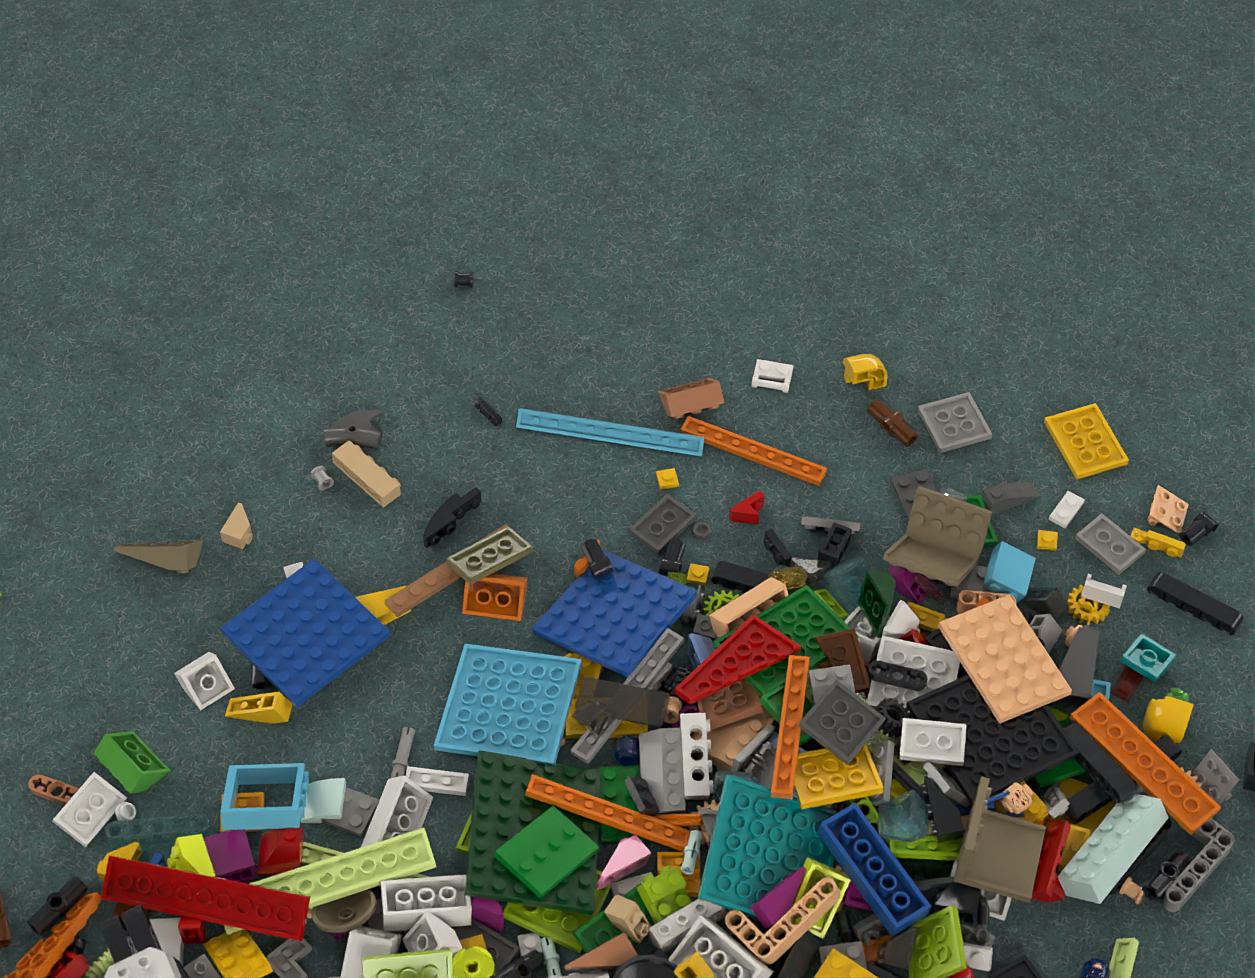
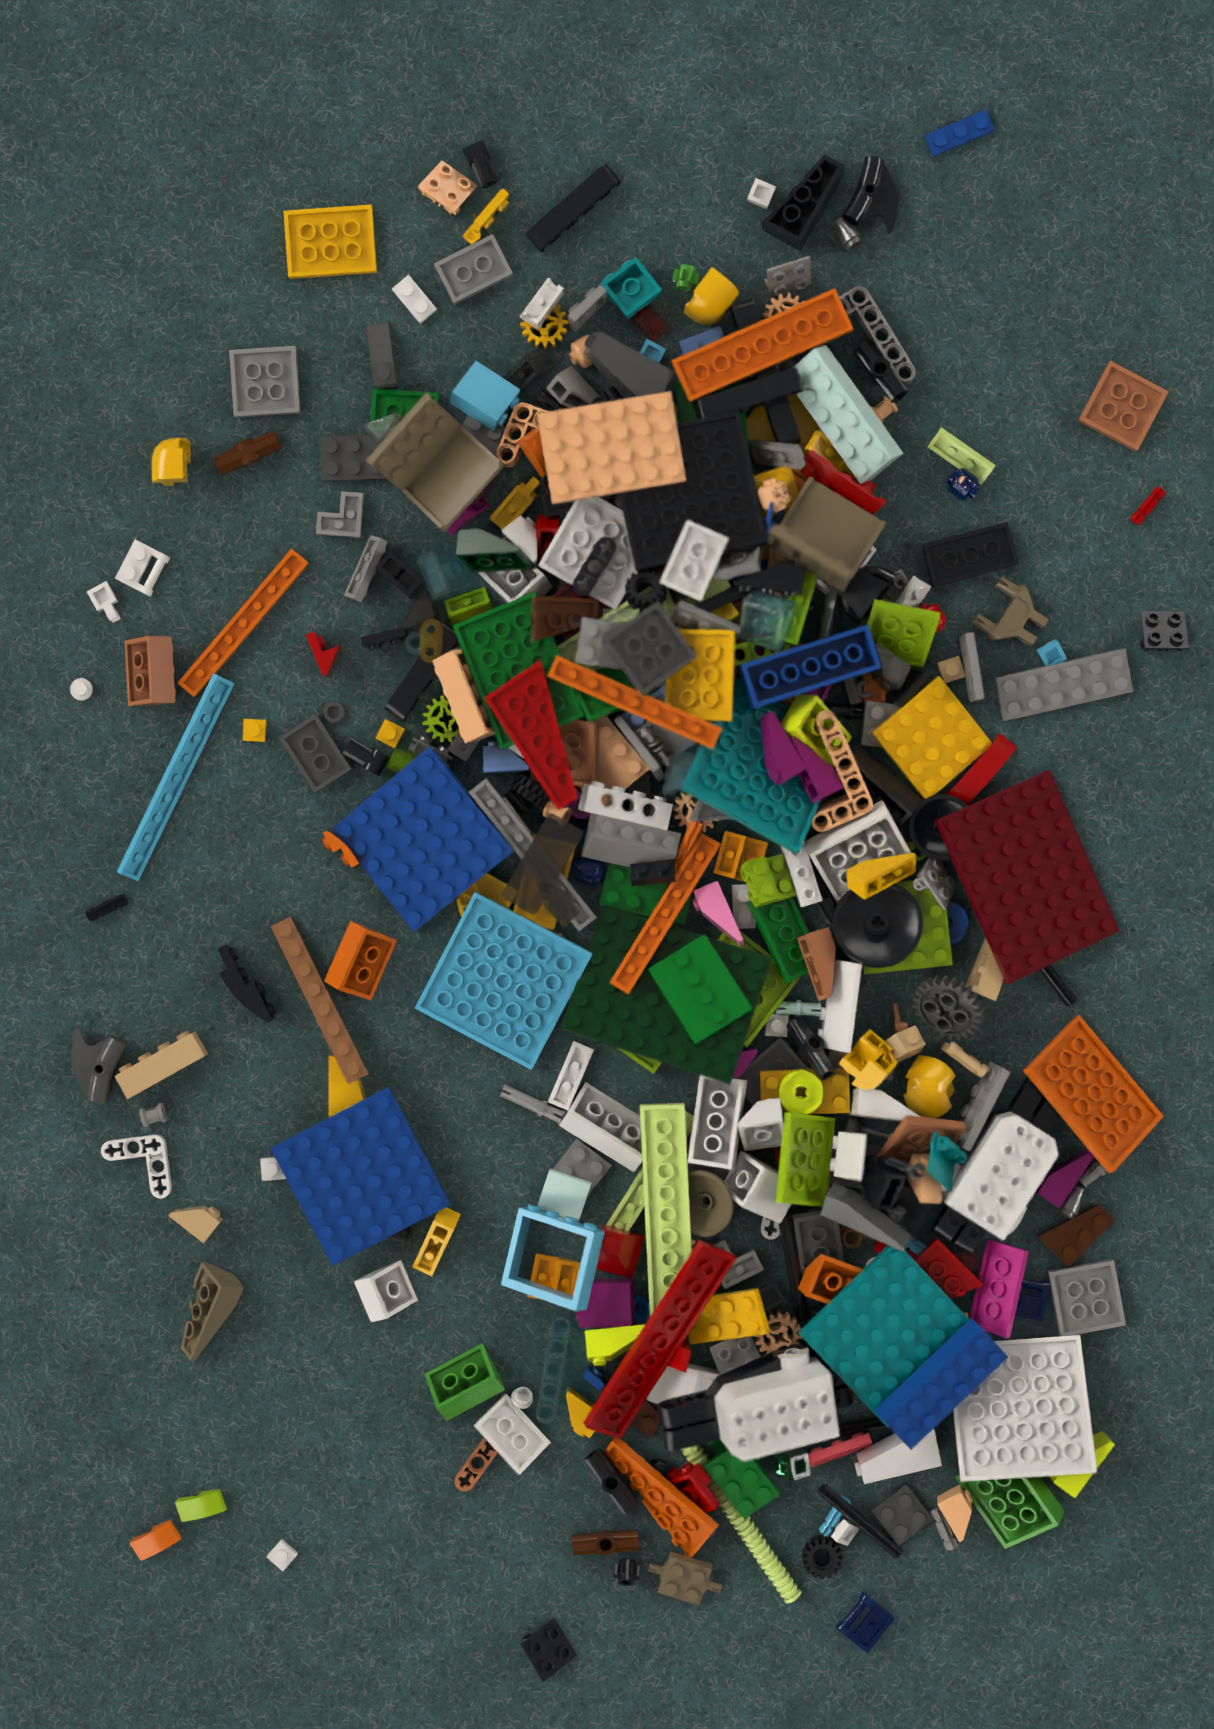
camera: 75 degrees left, 35 degrees up
(287, 485) = (151, 1156): none -> white beam
(489, 555) = (317, 957): olive tile -> none
(598, 562) = (359, 841): black piece -> none
(628, 918) = (788, 926): tan slope -> none
(660, 357) = (81, 689): none -> white plate
(692, 852) = (728, 839): light aqua pin -> none
(736, 355) = (103, 599): none -> white plate
(780, 865) = (779, 753): none -> magenta slope
(865, 503) = (347, 522): none -> light grey plate
(1047, 540) = (448, 336): yellow plate -> none
(1116, 627) = (582, 312): none -> light grey plate

